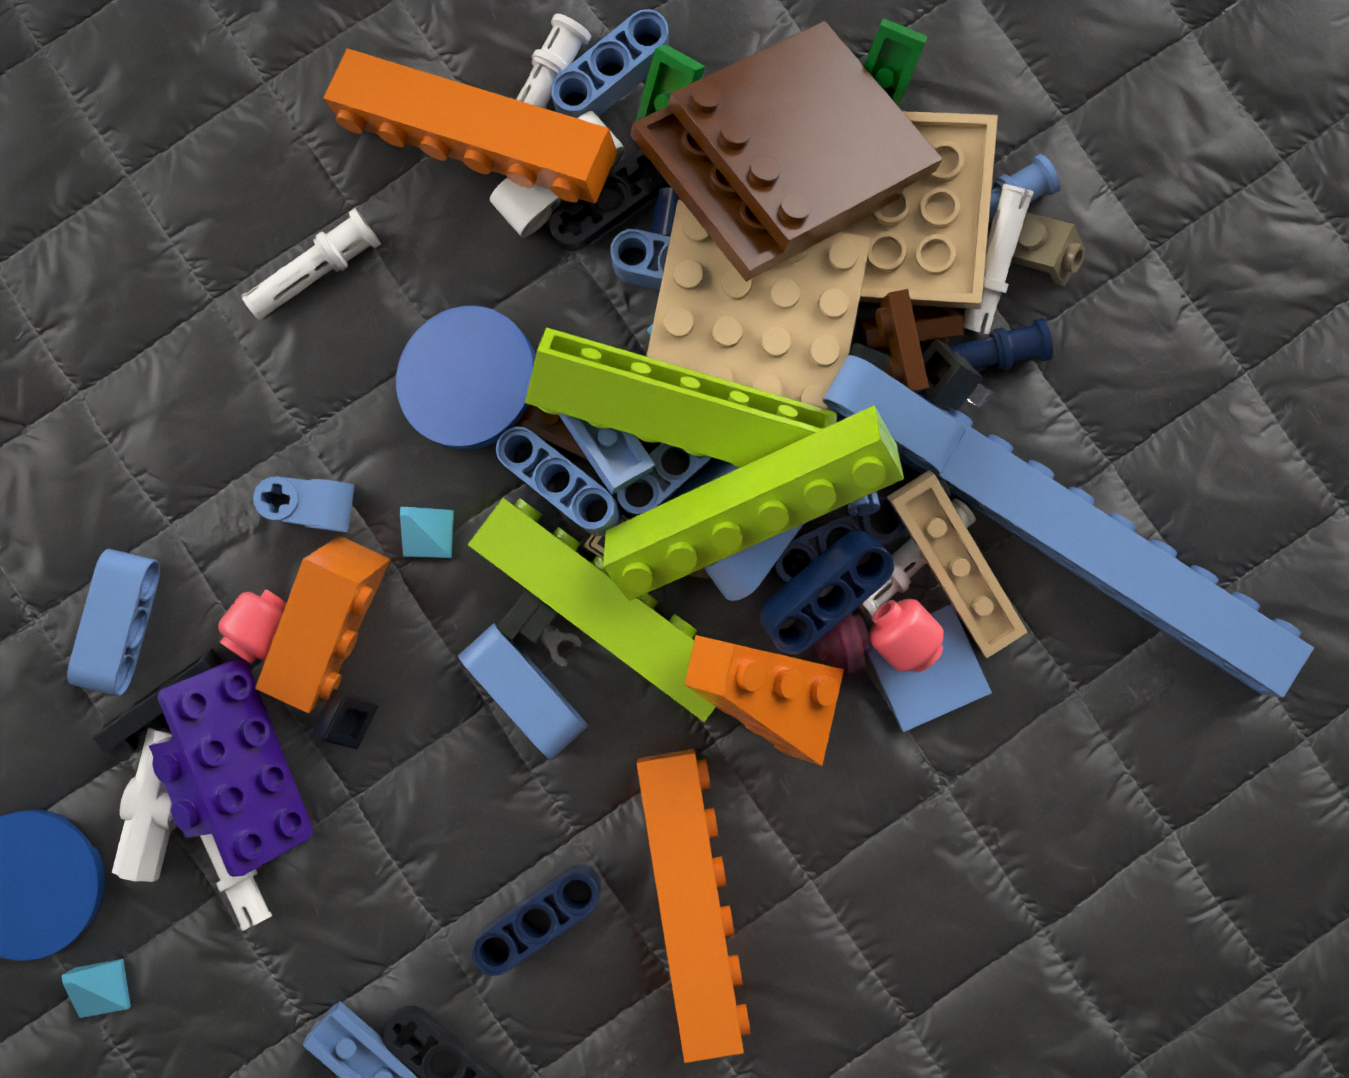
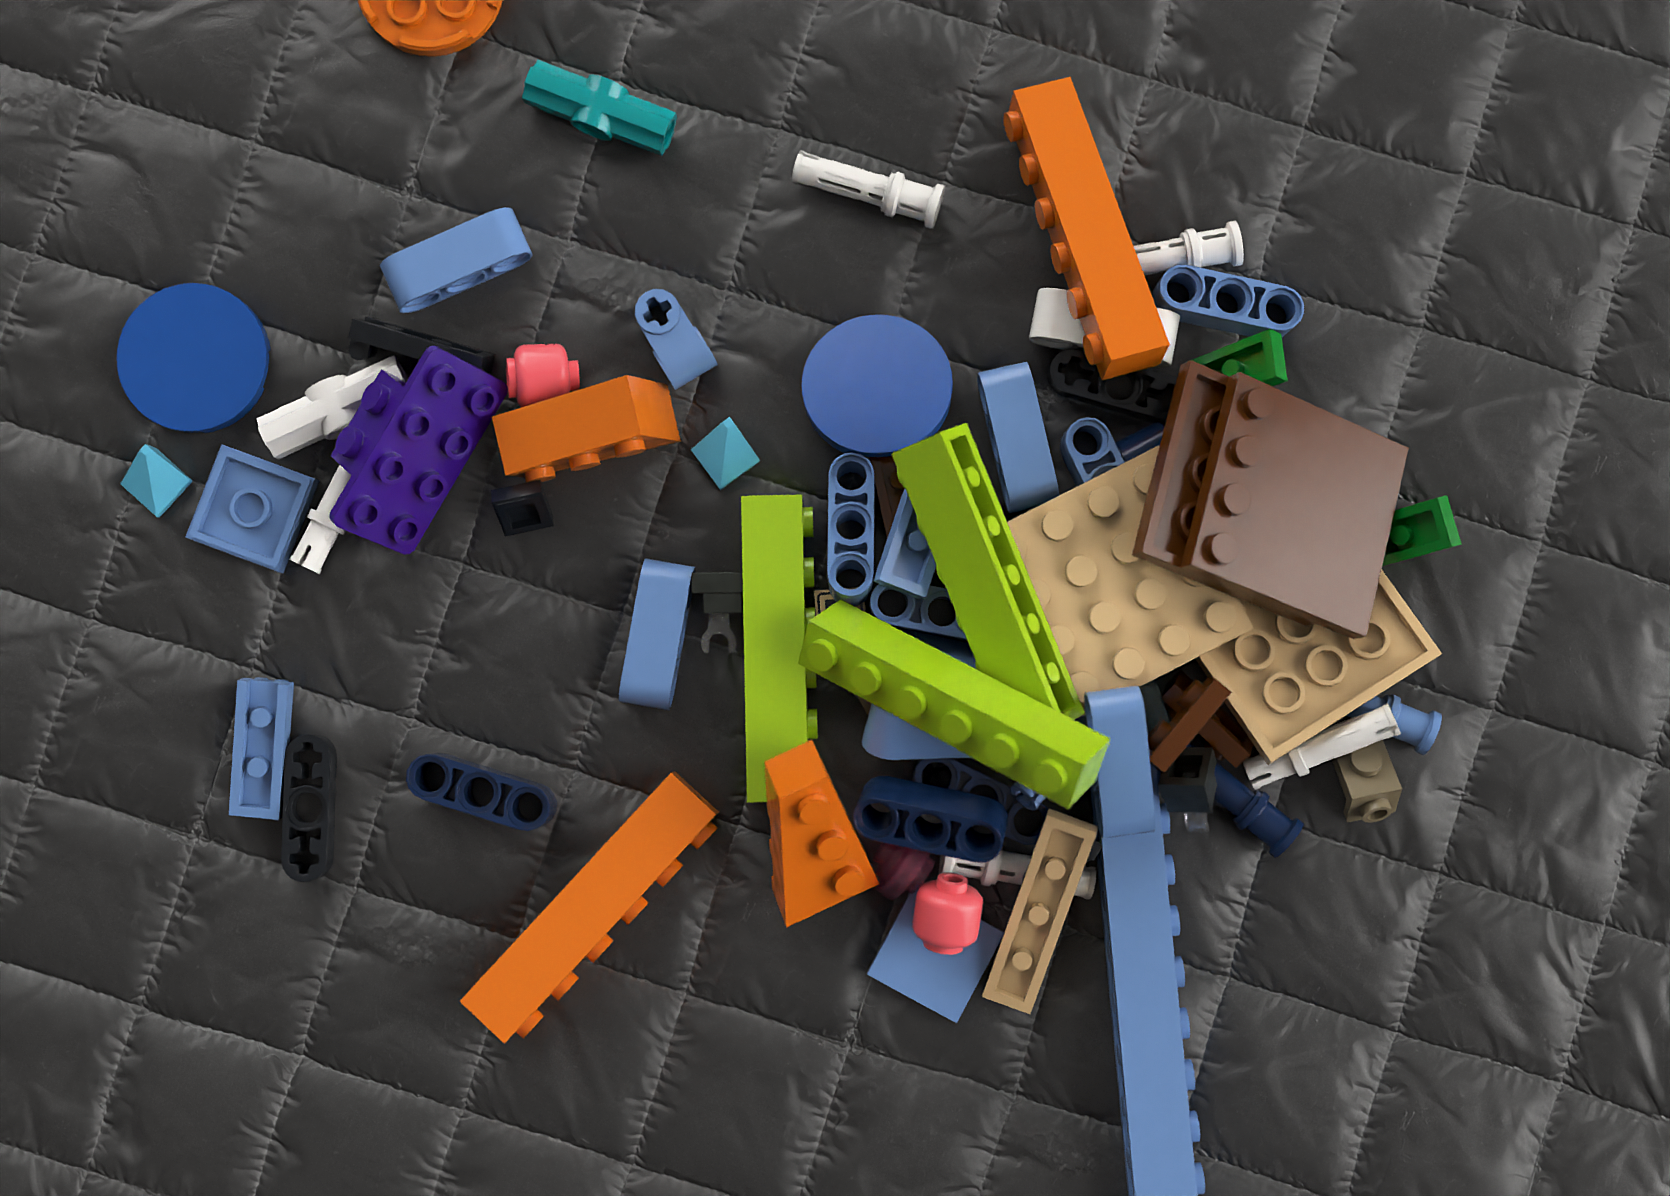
camera: 55 degrees right, 0 degrees up
(84, 421) = (599, 107): none -> teal piece
(180, 929) = (252, 508): none -> medium blue tile
(588, 302) = (1017, 436): none -> medium blue beam

